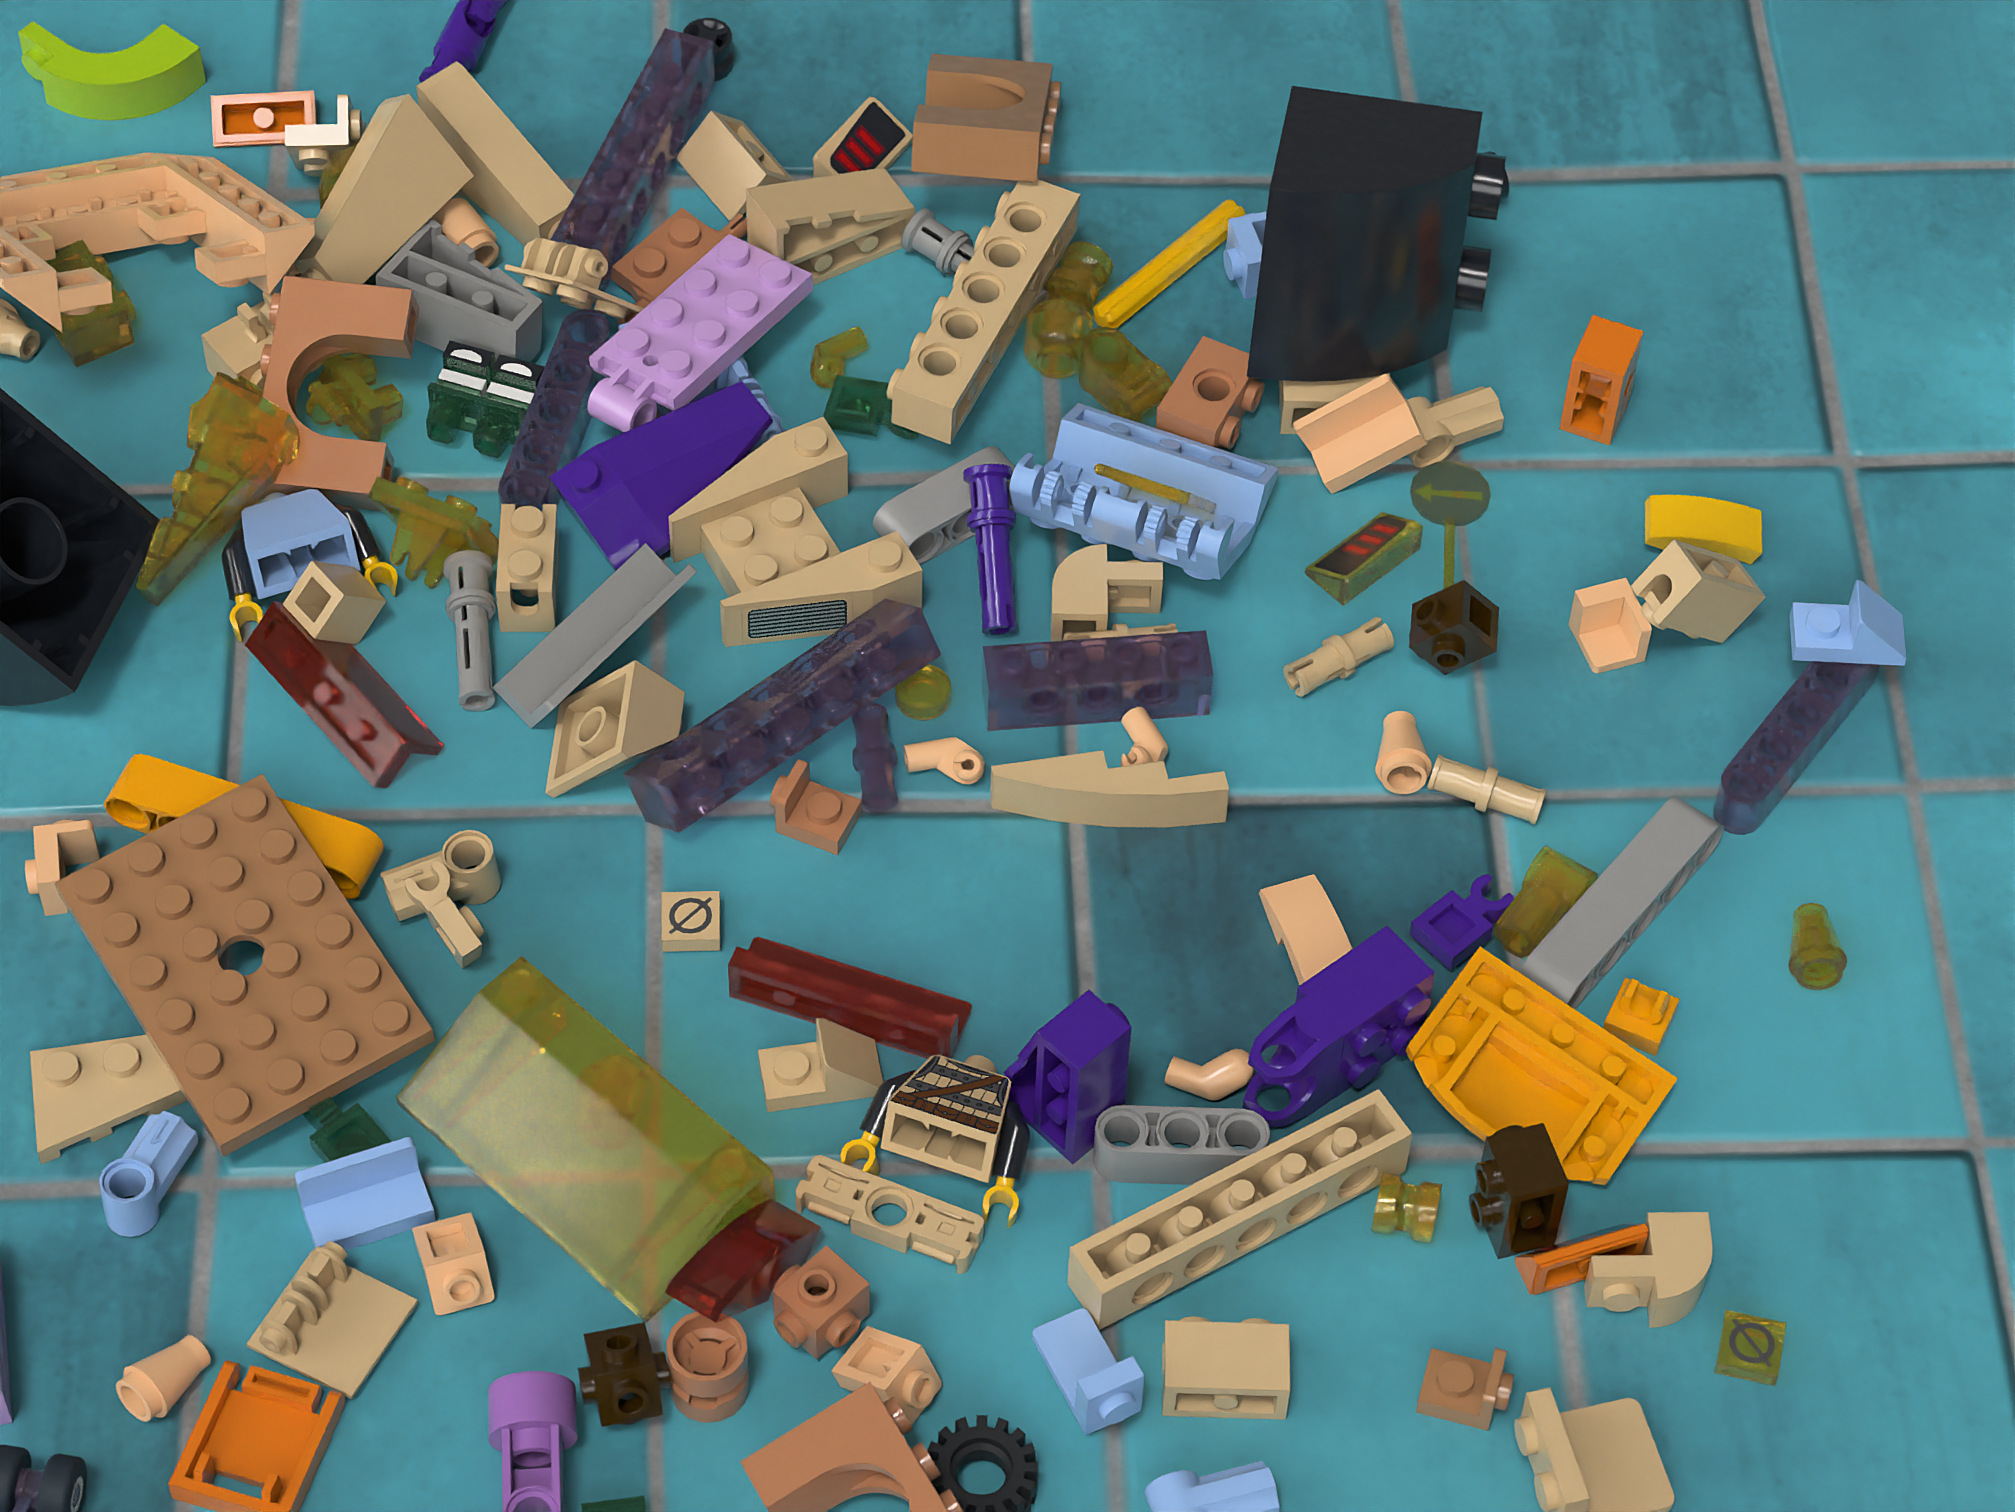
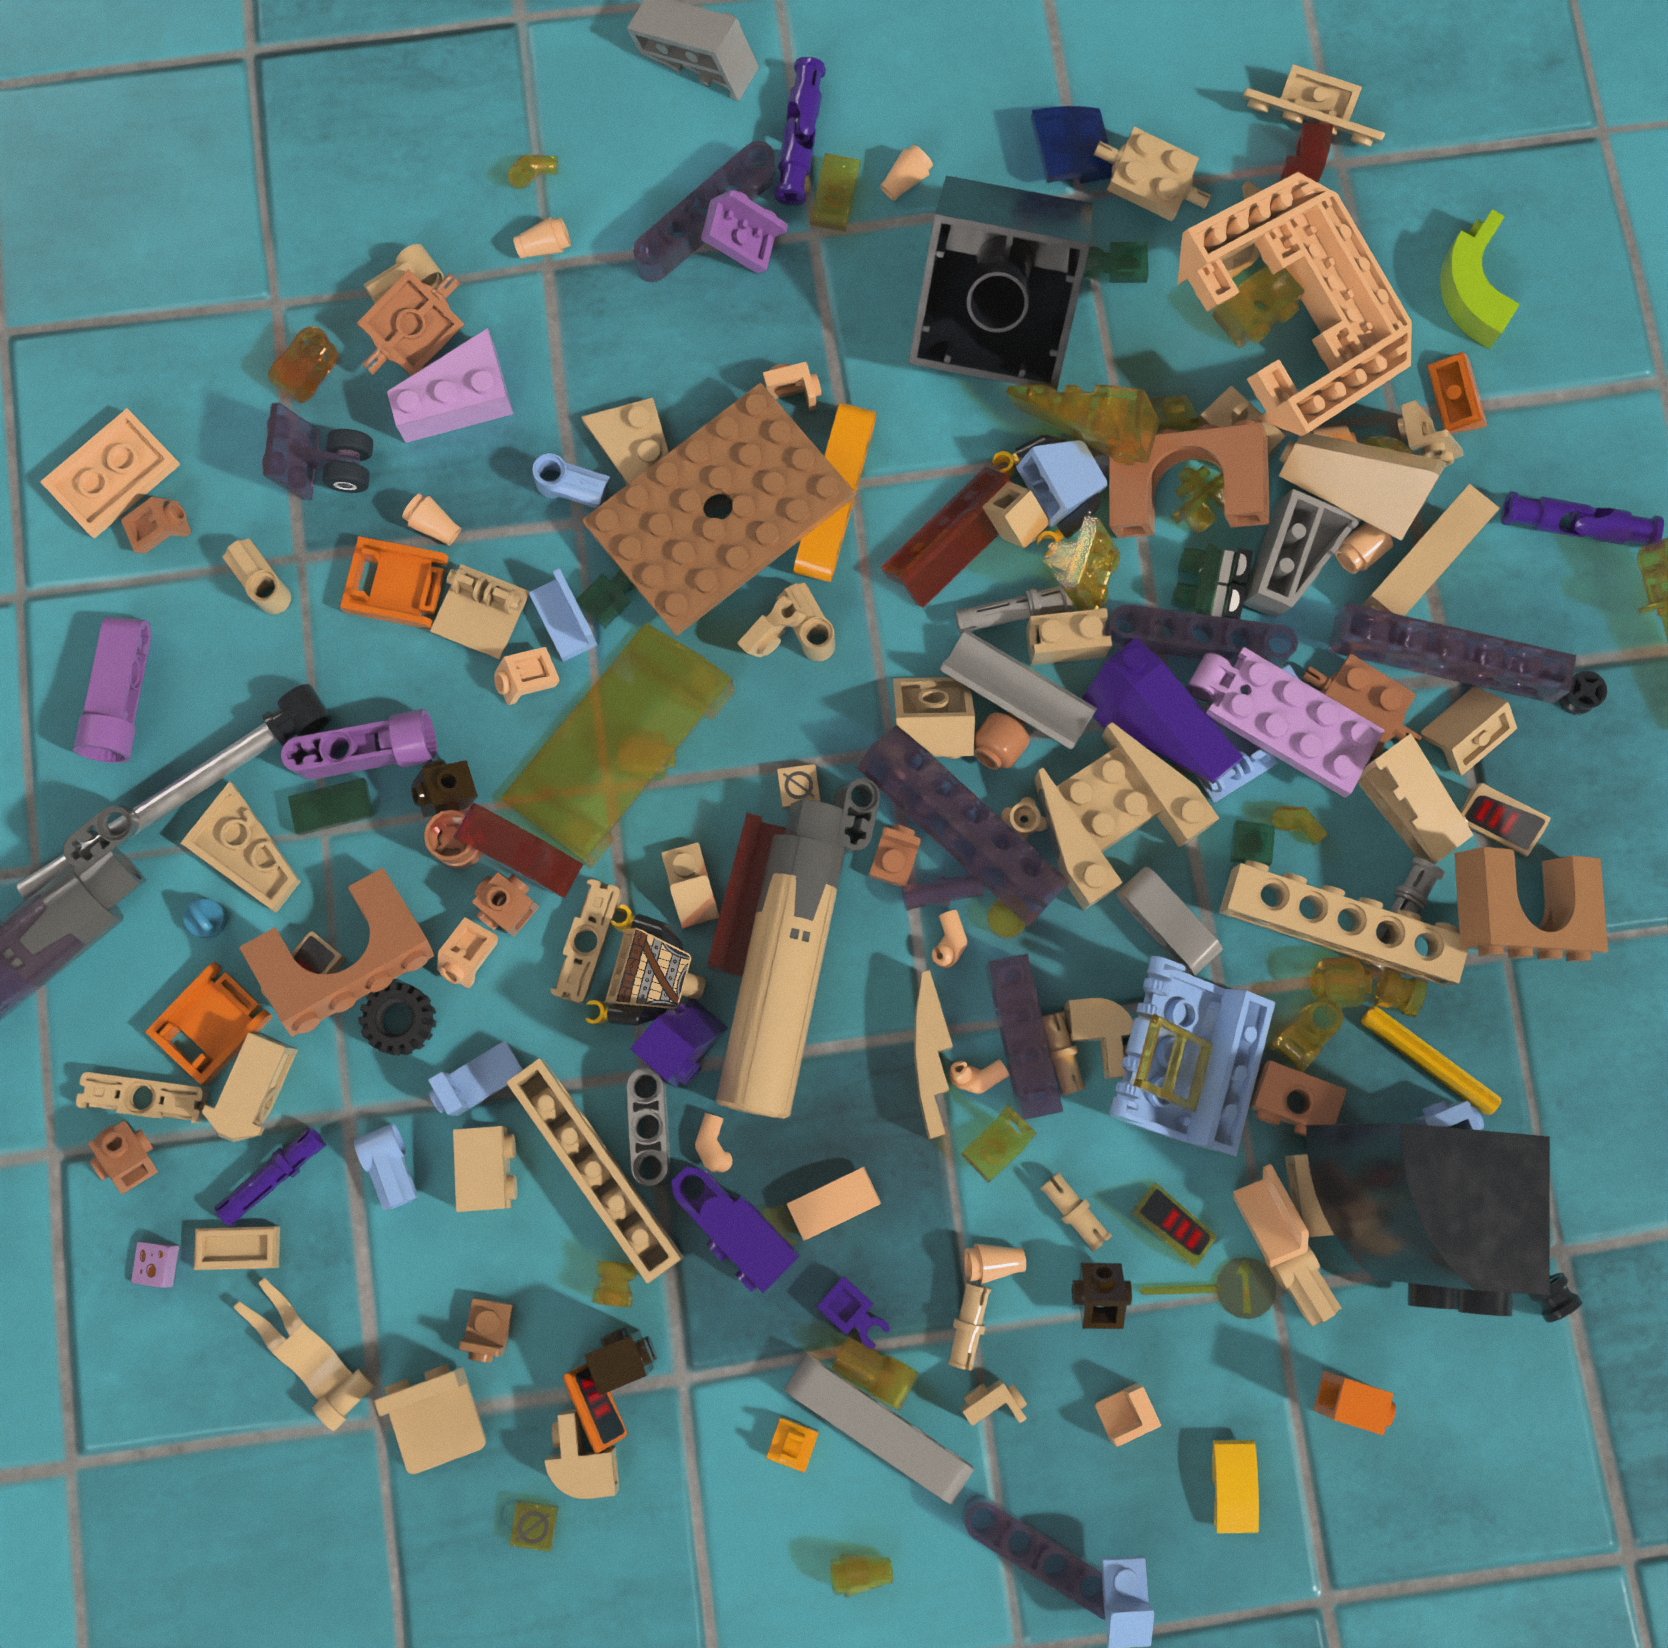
camera: 85 degrees right, 25 degrees up
(573, 273) = (1312, 625): tan hinge -> none
(670, 654) = (1000, 740): none -> nougat head
(776, 644) = (1026, 808): none -> tan plate
(931, 928) = (789, 949): none -> tan piece
(991, 523) = (1139, 949): dark purple pin -> none
(1238, 727) = (998, 1144): none -> clear yellow bracket
(1519, 1056) = (723, 1370): light orange slope -> none
(1587, 772) = (983, 1401): none -> tan bracket
(1697, 592) = (1150, 1472): tan brick -> none

